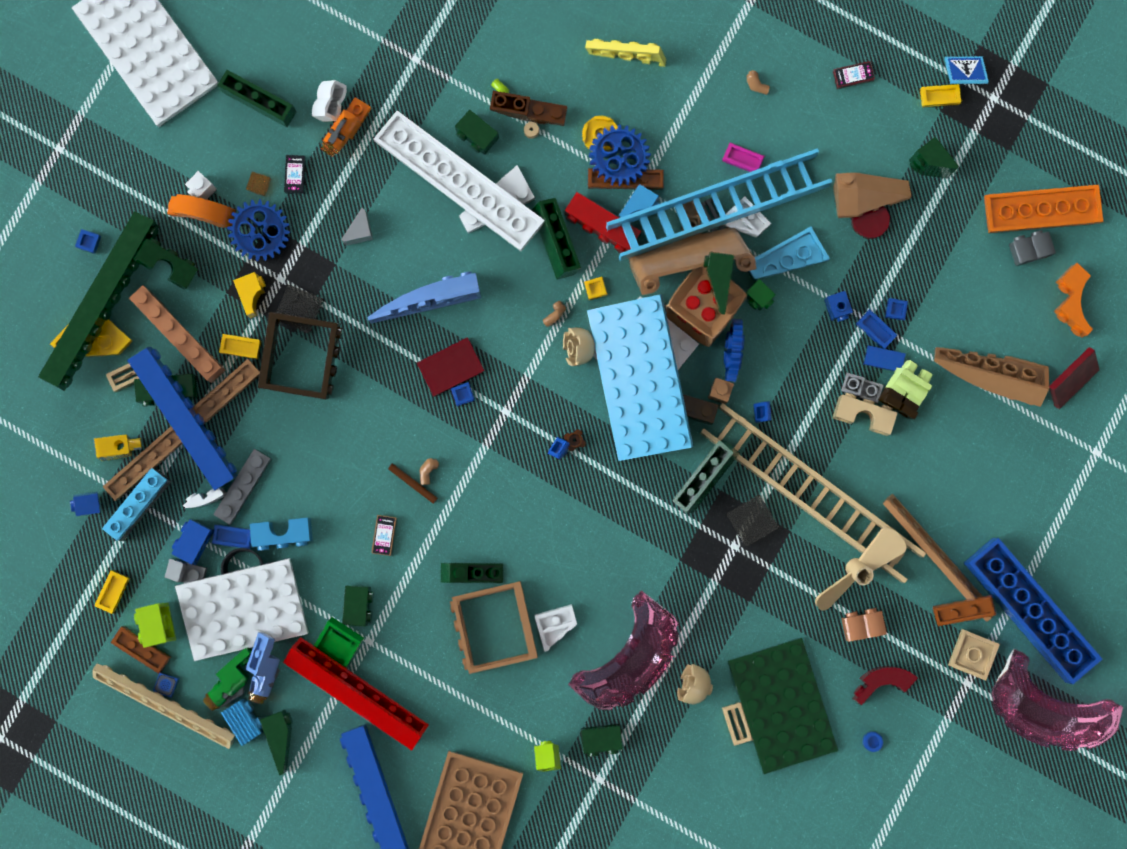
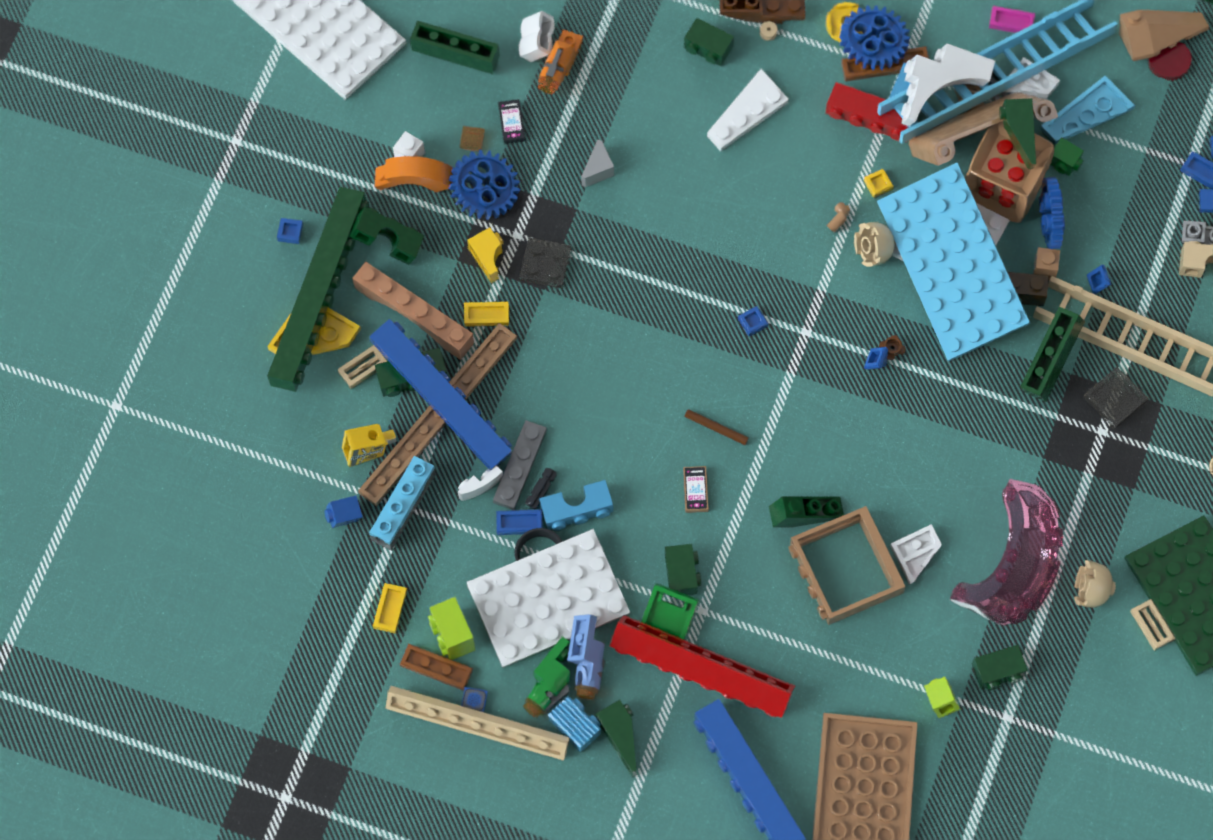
camera: 10 degrees left, 15 degrees down
(184, 572) = (466, 568): light grey slope -> none
(192, 541) = (475, 533): blue brick -> none
(255, 511) = (541, 488): none -> black axle
(269, 352) = (597, 317): dark brown window -> none
(426, 468) = (728, 409): medium nougat arm -> none
(430, 297) = (695, 222): medium blue wedge -> none
(450, 367) = (732, 294): dark red tile -> none
(459, 181) = (701, 94): white plate -> none
(557, 239) = (823, 135): dark green brick -> none
(654, 207) = (949, 68): none -> white arch
(838, 306) = (1156, 153): blue brick -> none

